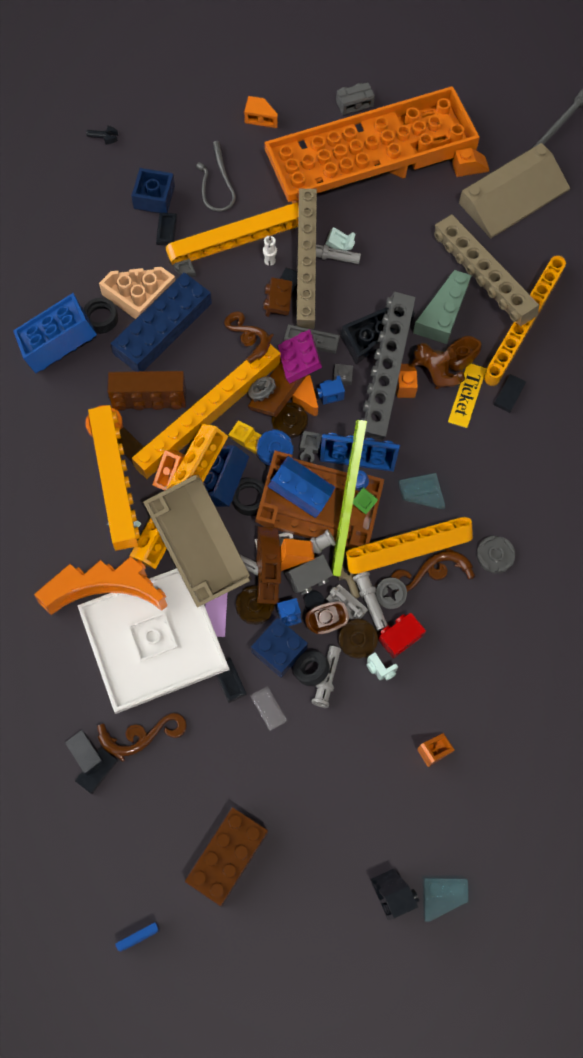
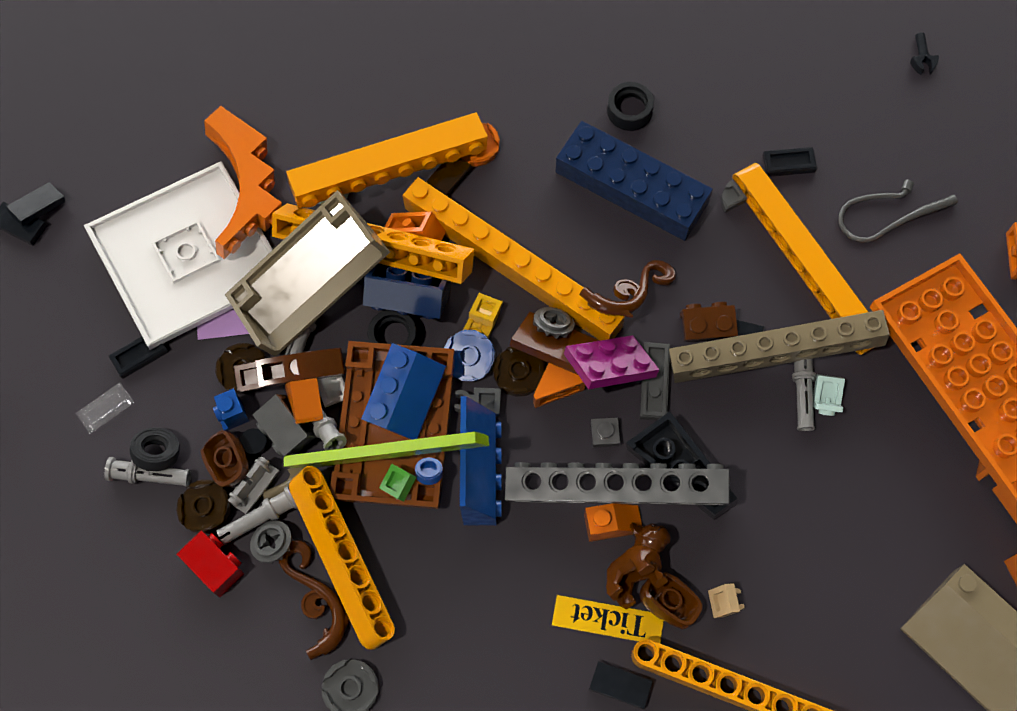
camera: 85 degrees right, 0 degrees up
(54, 333) = (586, 55): blue slope -> none
(110, 746) = (58, 269): reddish brown plant -> none
(135, 289) = (676, 136): light nougat brick -> none
(147, 390) = (521, 179): reddish brown brick -> none
(153, 190) = (841, 129): dark blue brick -> none
(269, 250) = (779, 295): white pin -> none
(279, 647) = (179, 404): dark blue brick -> none
(331, 391) = (571, 417): blue brick -> none
(376, 667) = (162, 536): light aqua bracket -> none
(423, 490) = (434, 568): clear light blue wing -> none
(435, 749) = (51, 628): orange slope -> none
(441, 313) = (729, 558): sand green wedge -> none
(465, 324) = (724, 600): none -> tan tile
(486, 270) = (760, 690): dark tan brick -> none

